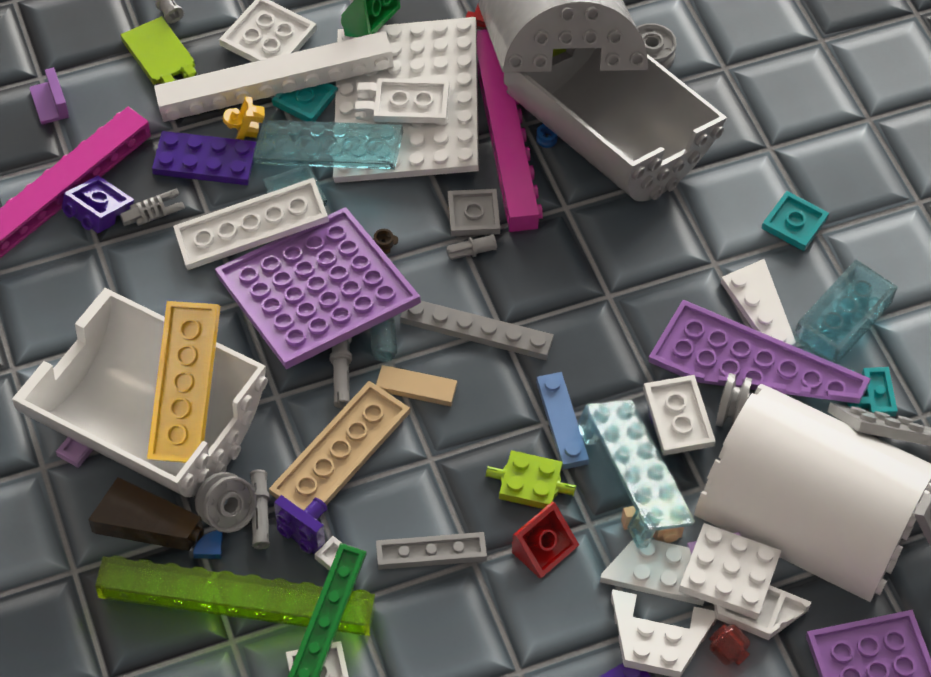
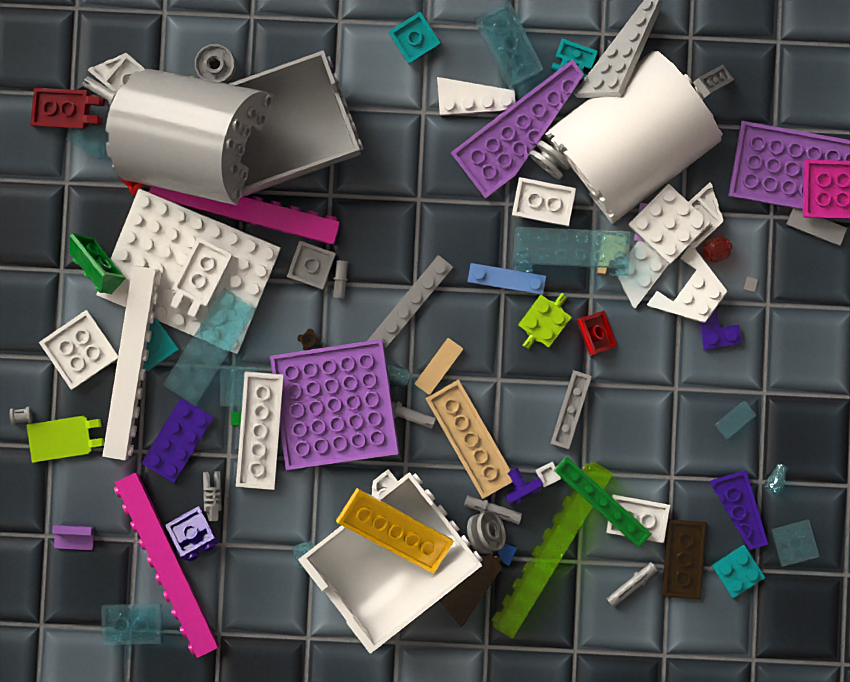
camera: 65 degrees left, 30 degrees up
(245, 120) = (162, 401): yellow hips -> none

